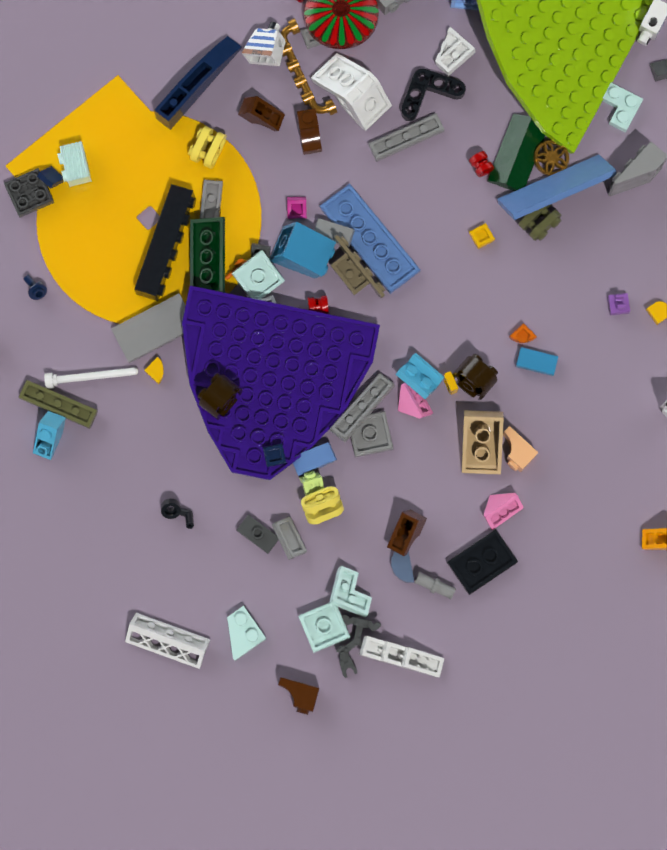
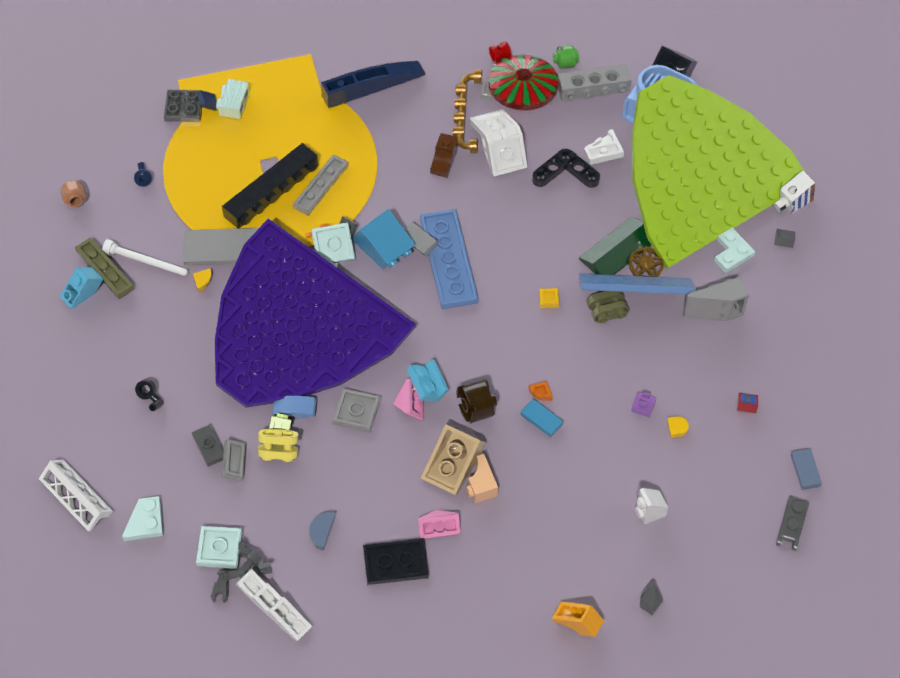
camera: 25 degrees right, 20 degrees down
(203, 137) = (351, 131): light yellow brick -> none
(207, 253) = (301, 204): dark green slope -> none
(219, 396) = (239, 310): dark brown brick -> none
(260, 112) = (411, 125): reddish brown arch -> none
(265, 46) = (443, 78): torso -> none
(274, 455) = (260, 385): dark blue tile -> none
(296, 207) = (400, 208): dark pink slope -> none
(303, 695) = (165, 595): reddish brown arch -> none
(319, 304) = (374, 287): red wheel -> none
(344, 593) = (254, 531): light aqua plate -> none
(352, 272) = (415, 274): dark tan bracket -> none
(362, 407) = (361, 384): light grey tile -> none
(406, 137) = (526, 196): light grey tile -> none
(406, 531) = (340, 498): reddish brown arch -> none
(435, 585) = (340, 559): light grey pin -> none
(450, 383) = (451, 399): yellow tile -> none
(481, 164) = (579, 241): red wheel -> none

